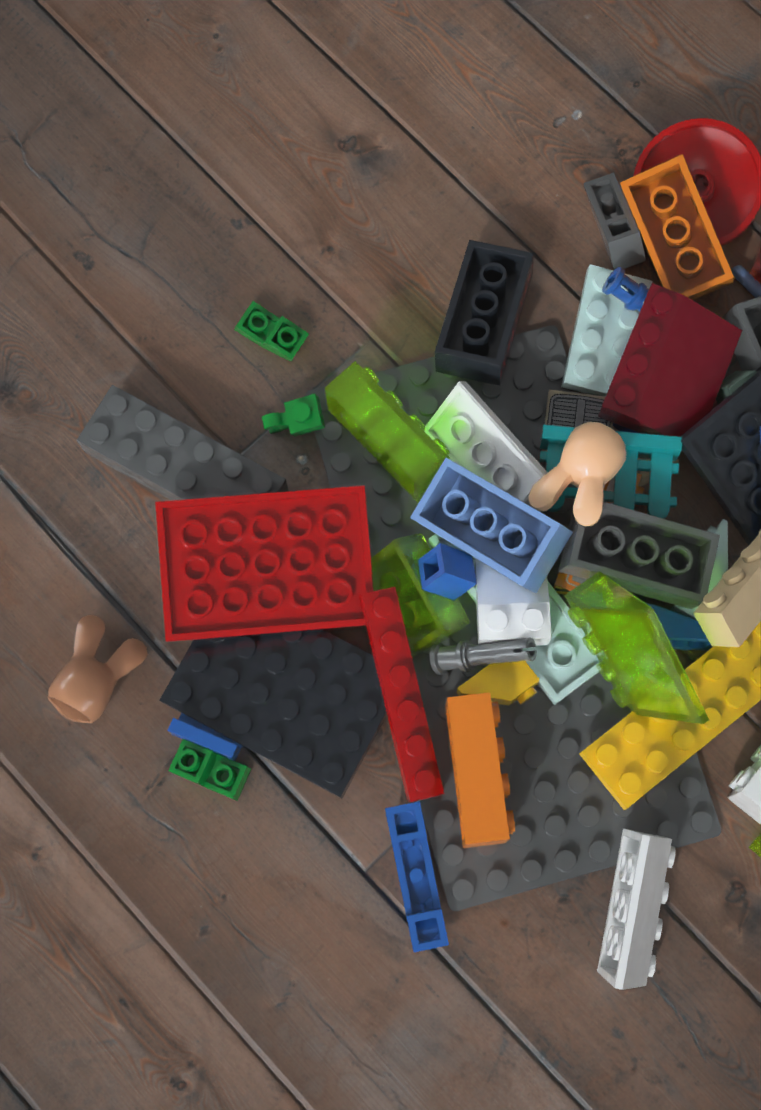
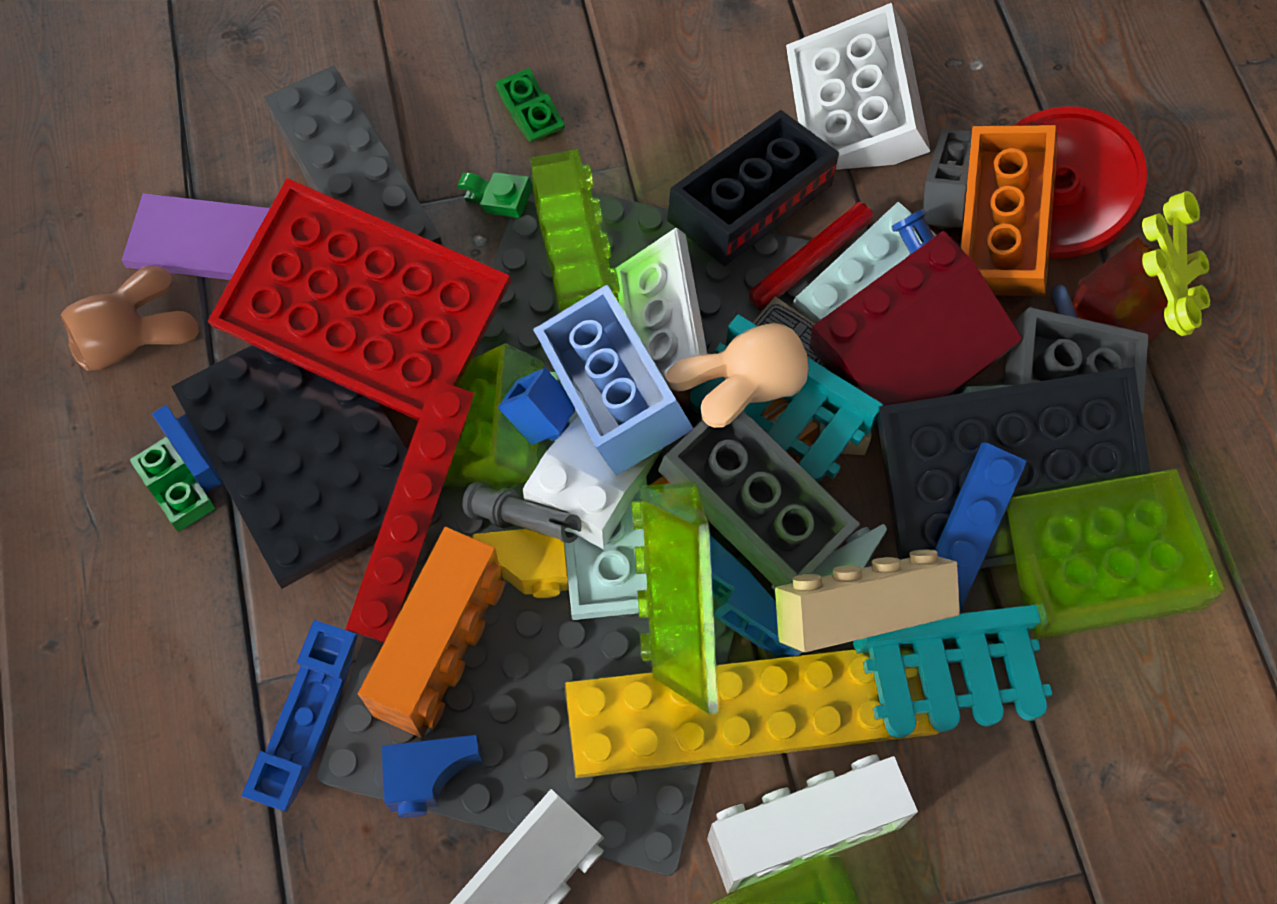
camera: 25 degrees right, 10 degrees down
(99, 572) = (191, 235): none -> medium lavender tile
(508, 187) = (860, 90): none -> white slope
(523, 867) = (419, 770): none -> blue arch
(554, 342) = (810, 255): none -> red axle

